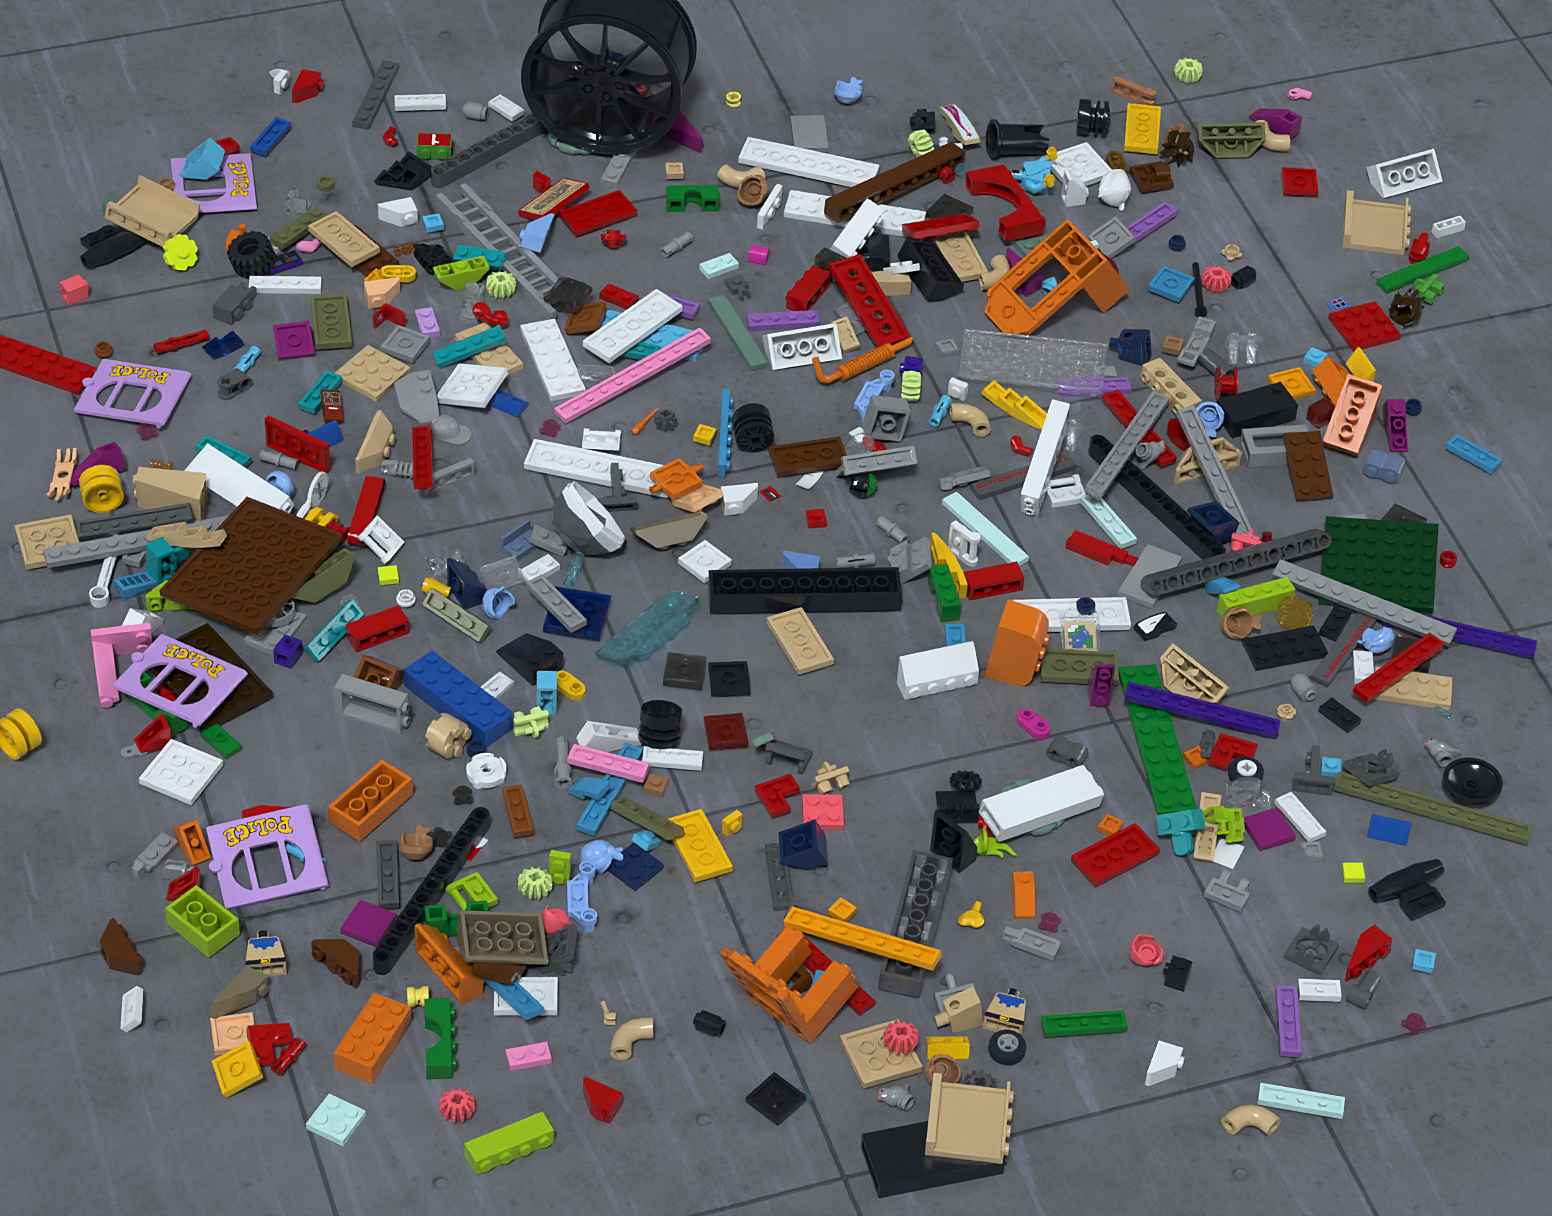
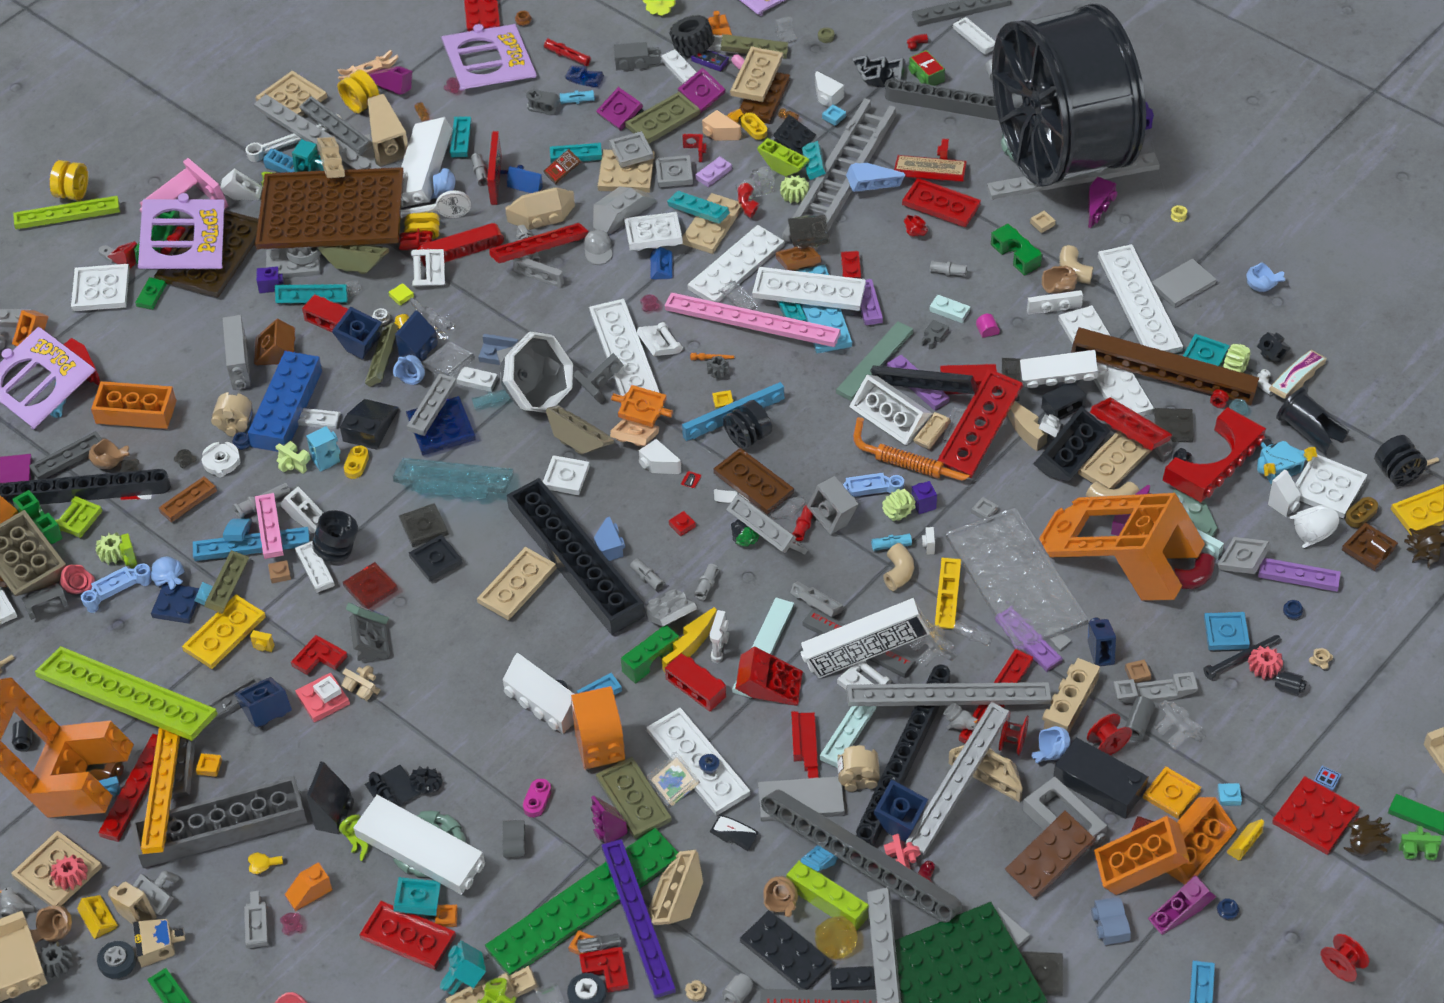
camera: 65 degrees right, 5 degrees up
(48, 759) = (66, 212): none -> lime plate
(323, 280) = (702, 89): none -> magenta tile
(360, 352) = (631, 149): none -> light grey plate
(425, 613) = (357, 332): none -> dark blue slope
(725, 930) = (126, 693): none -> lime plate
(799, 307) = (926, 379): none -> black plate
(829, 797) = (327, 689): none -> white plate
(892, 156) = (1206, 350): none -> teal plate
(988, 222) = (1182, 454): none -> black plate
(1024, 536) = (768, 677): none -> red slope
(1085, 830) = (417, 896): none -> teal plate
(1155, 526) = (858, 768): none -> tan brick
(1499, 368) = (1345, 957): none -> red piece

